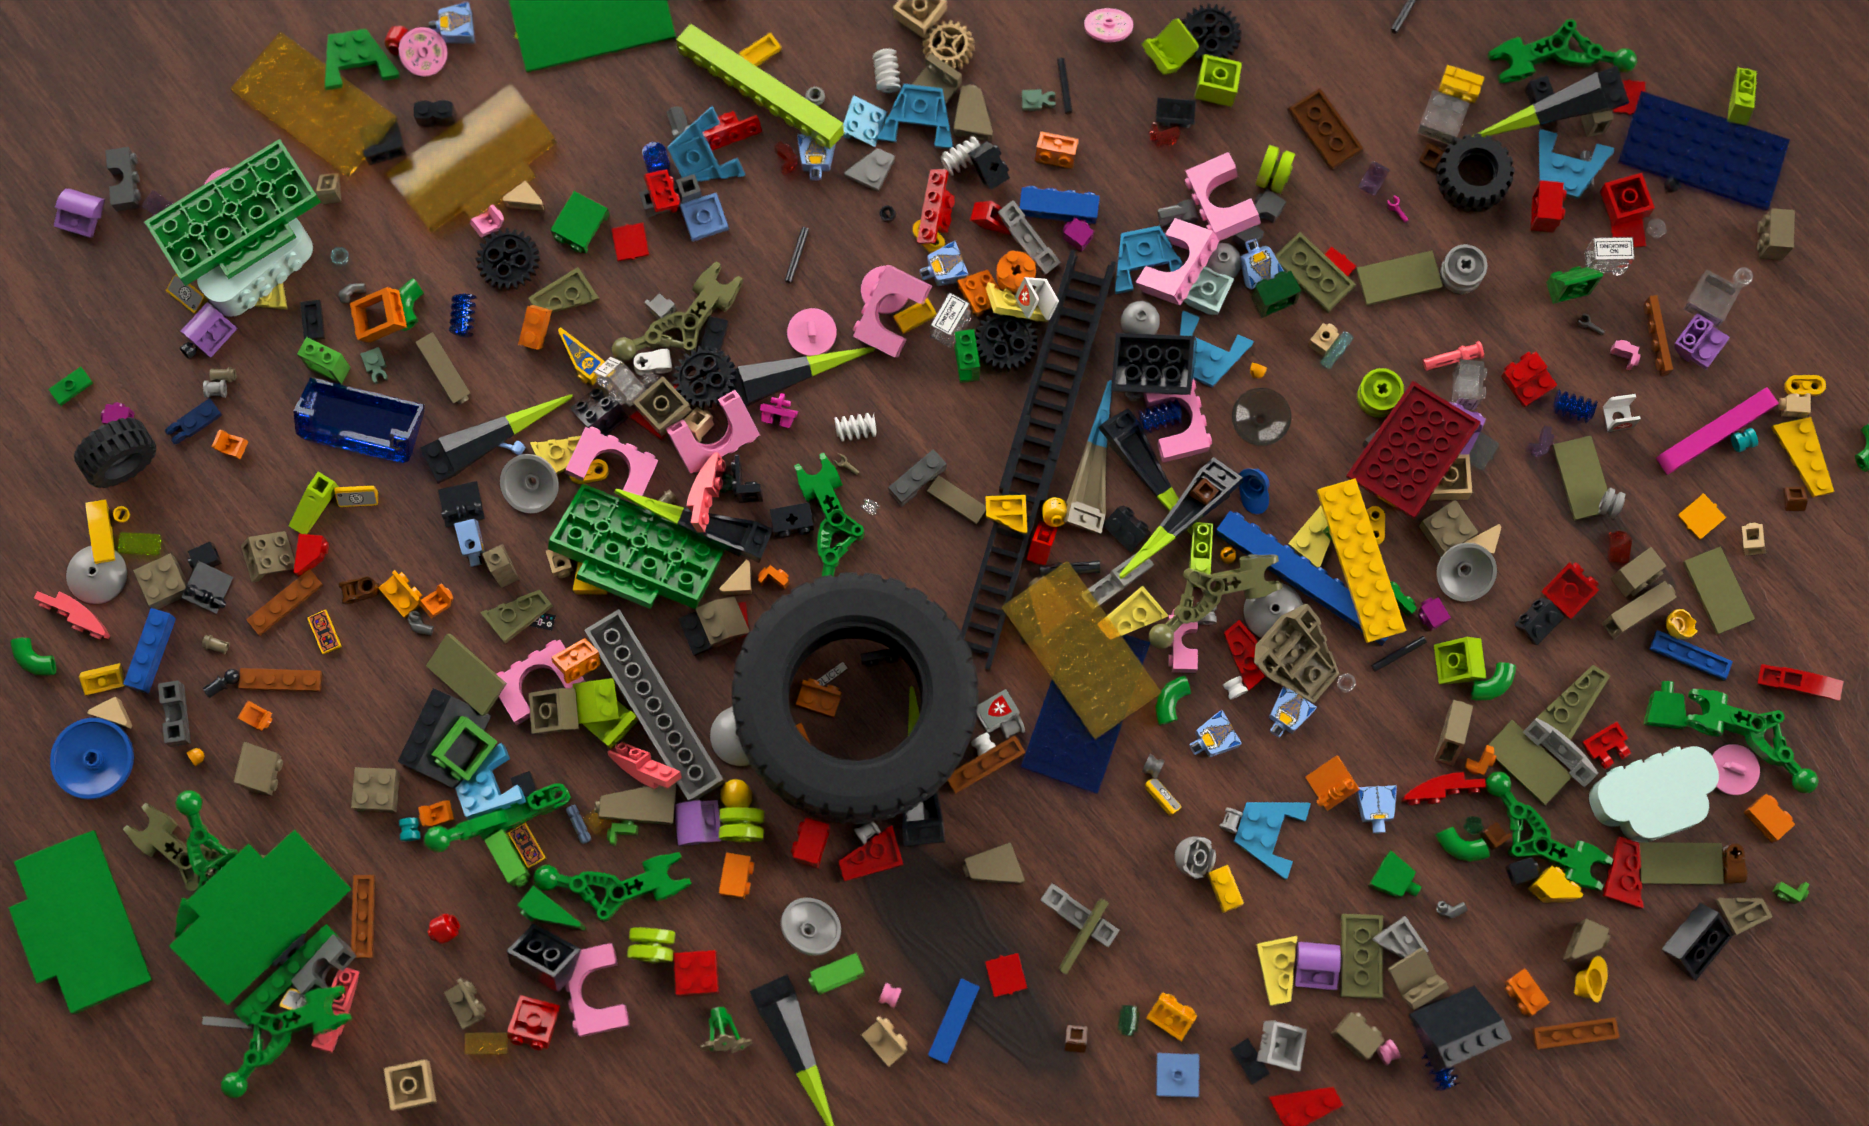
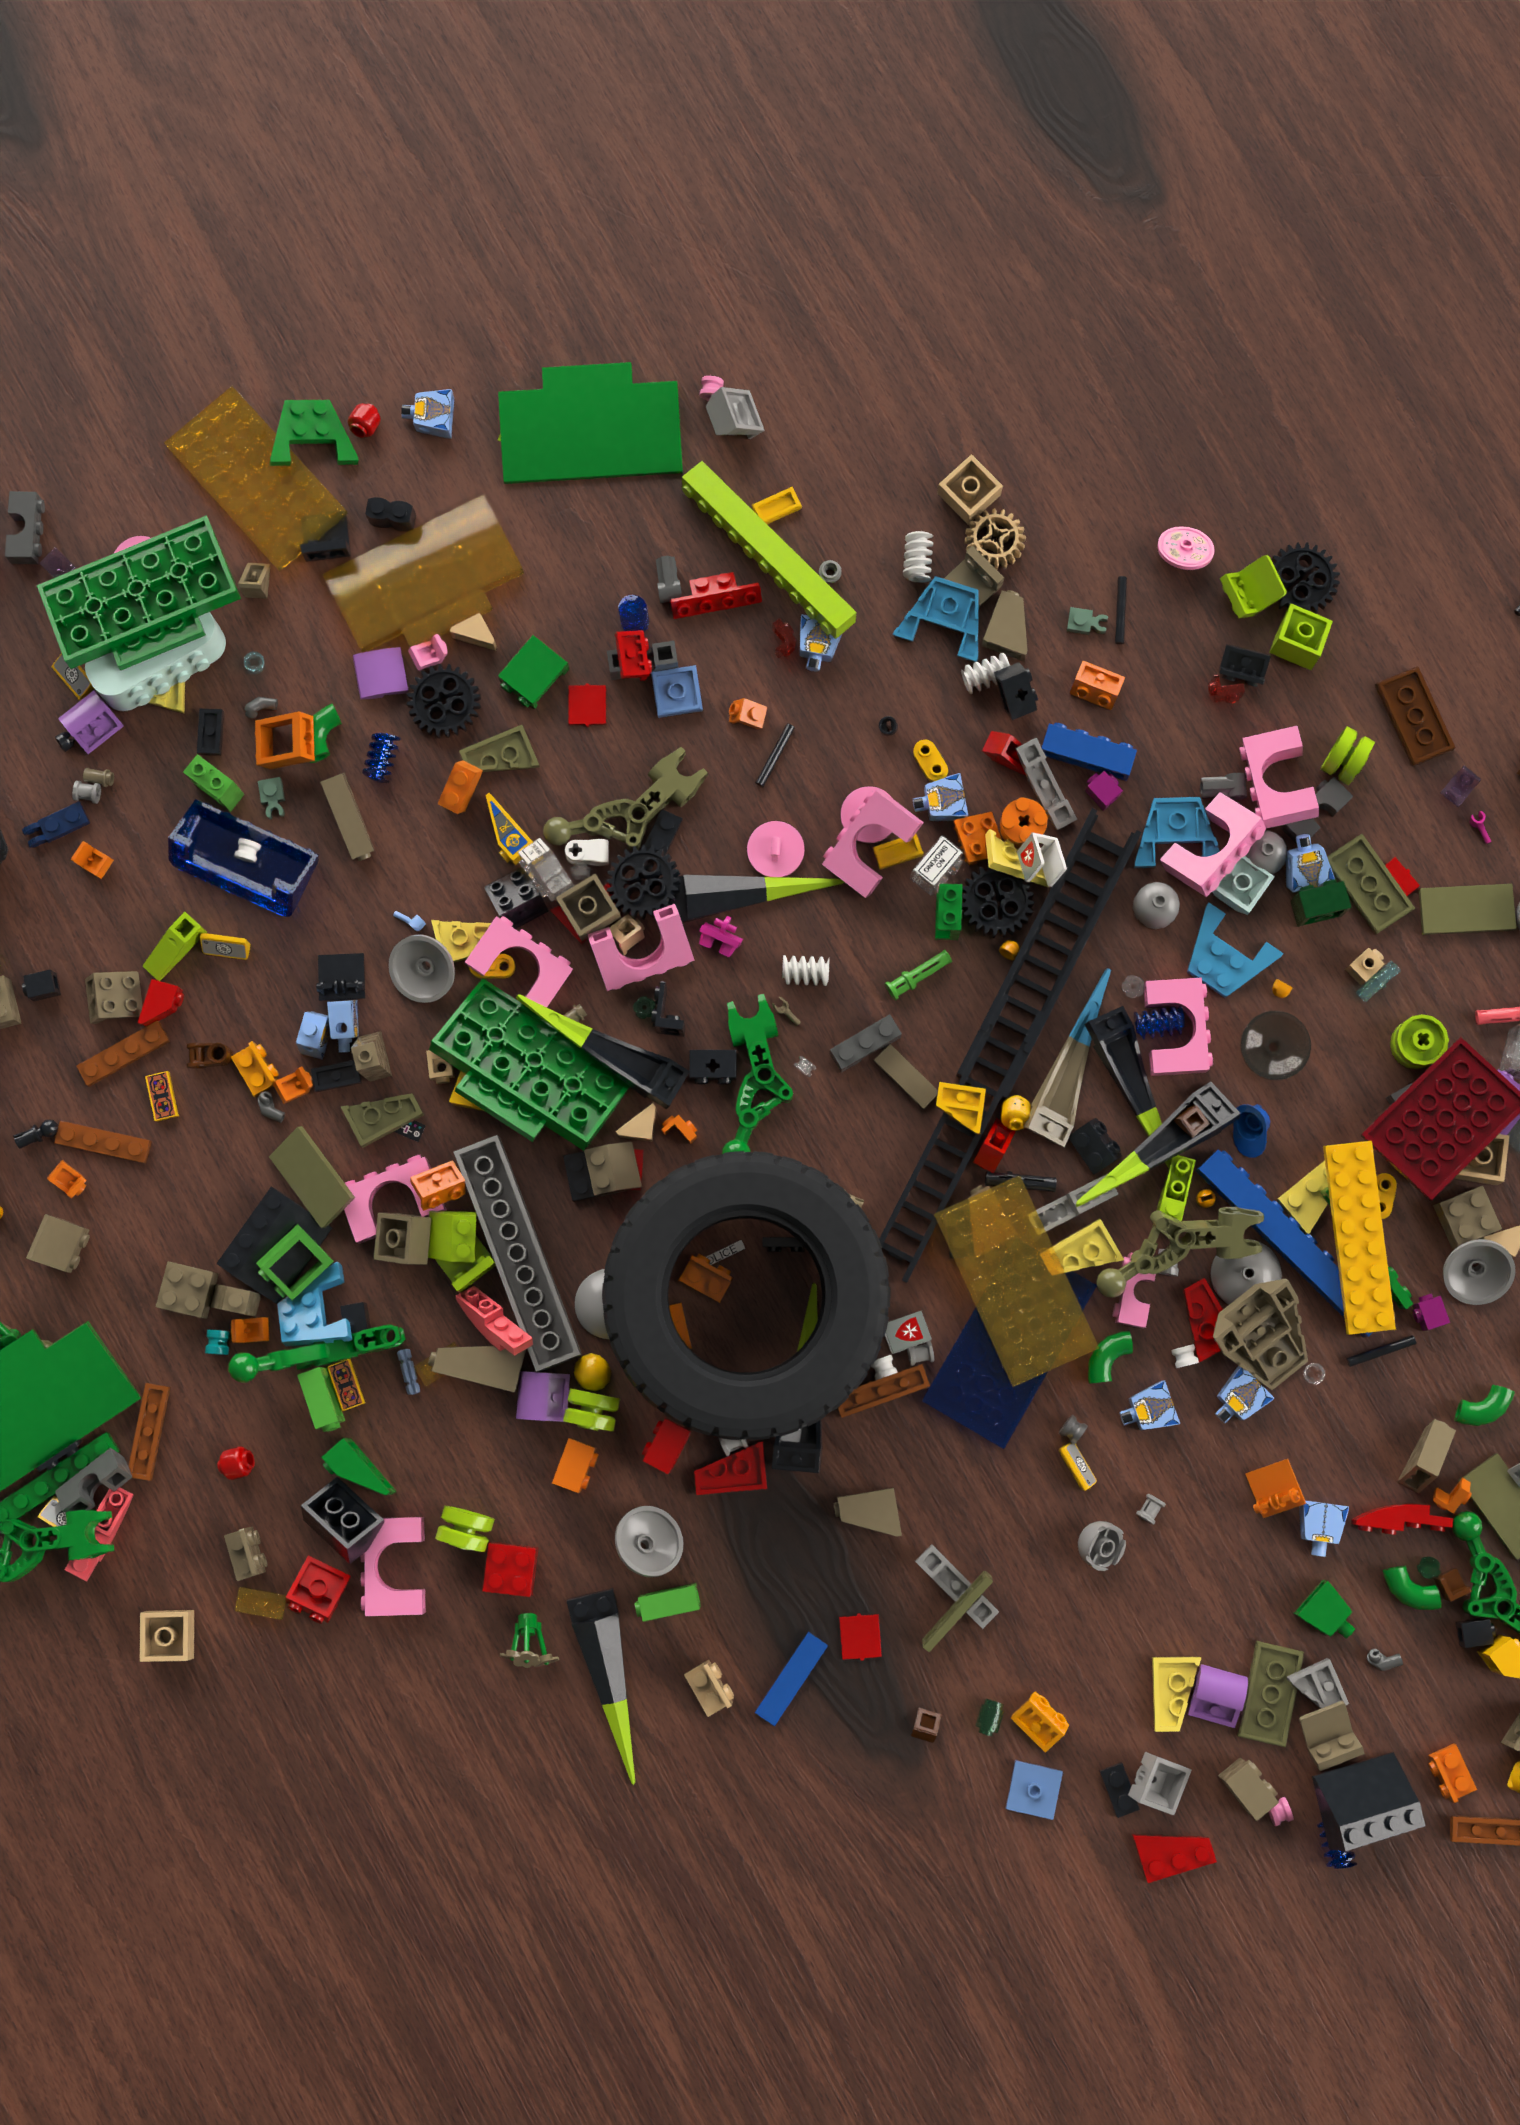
camera: 15 degrees right, 5 degrees up
(207, 587) = (38, 1021): black hinge -> none
(215, 644) = (37, 1088): dark tan pin -> none
(362, 412) = (247, 850): none -> white wheel
(418, 790) = (235, 1300): none -> dark tan slope
(422, 51) = (389, 438): bright pink shield -> none
(446, 554) = (313, 1034): none -> light blue torso
(449, 246) = (380, 673): none -> medium lavender slope
(460, 449) = (351, 913): black plate -> none
(471, 587) = (335, 1076): none -> black plate
(625, 828) = (460, 1386): bright green bracket -> none
(654, 880) = (482, 1452): green piece -> none
(660, 306) = (608, 788): light grey panel -> none
(695, 156) = (678, 616): dark azure wing -> none
(703, 489) = (621, 1009): coral slope -> none
(767, 224) = (747, 713): none -> orange bracket
(863, 121) = (880, 611): medium azure hinge -> none
(872, 169) = (880, 669): light grey wing -> none
(890, 995) = (724, 1636): bright pink wheel -> none
(936, 208) = (945, 730): red bracket -> none
(945, 421) = (907, 977): none -> bright green pin
(1024, 379) = (1009, 949): none -> light orange hinge
(1153, 363) = (1162, 961): black slope -> none
(1225, 889) = (1129, 1587): yellow brick -> none
(1261, 827) = (1183, 1524): dark azure wing -> none
(1460, 660) = (1450, 1373): lime slope -> none

